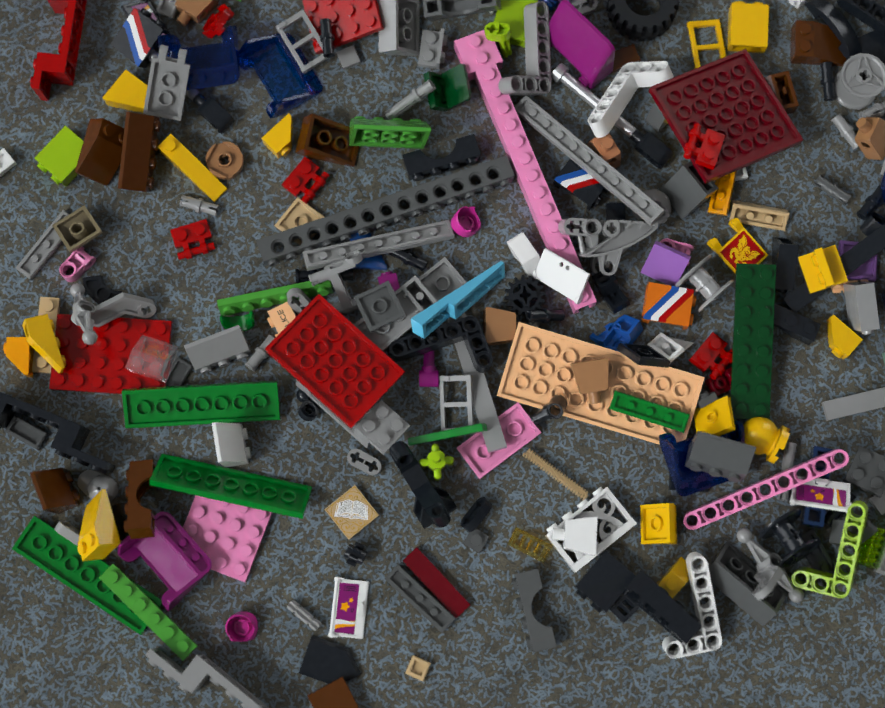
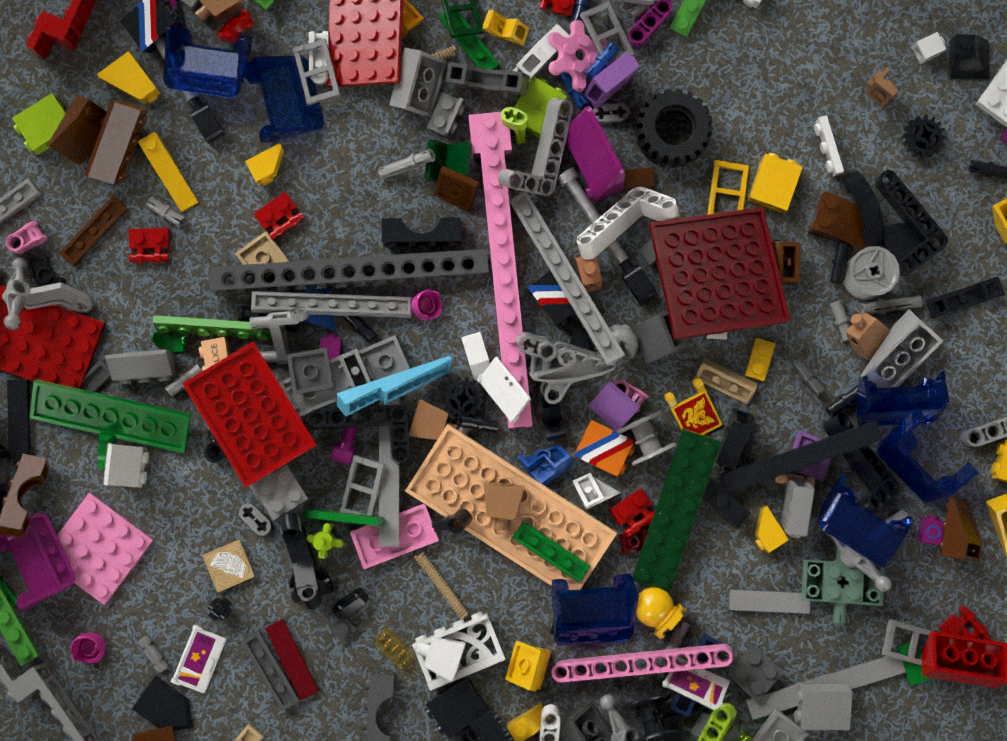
camera: 15 degrees right, 5 degrees up
(77, 229) = (35, 203): dark tan slope -> none
(114, 431) = (18, 418): none -> black tile
(137, 241) = (93, 231): none -> reddish brown tile
(152, 358) = (73, 356): clear slope -> none
(167, 85) = (164, 80): light grey tile -> none
(204, 437) = (103, 441): none -> green helmet
(220, 151) = (204, 184): medium nougat plate -> none
(231, 486) = (116, 507): green plate -> none
(297, 305) = (234, 343): light grey beam -> none
(301, 30) = (317, 57): none -> white plate
(326, 141) = (313, 182): reddish brown slope -> none
(327, 38) = (340, 76): black pin -> none
(348, 57) = (358, 100): light grey tile -> none
(388, 133) = (374, 191): bright green slope -> none
(462, 109) = (456, 188): none -> reddish brown tile
(643, 355) = (562, 494): black tile -> none
(706, 398) = (613, 553): dark grey plate -> none
(710, 146) = (688, 306): red plate -> none
(715, 417) = (613, 578): yellow plate -> none
(719, 456) = (605, 619): dark grey slope -> none
(721, 198) = (691, 355): light orange plate -> none
(783, 187) = (759, 359): none -> yellow plate
(822, 269) = (768, 458): yellow bracket -> none

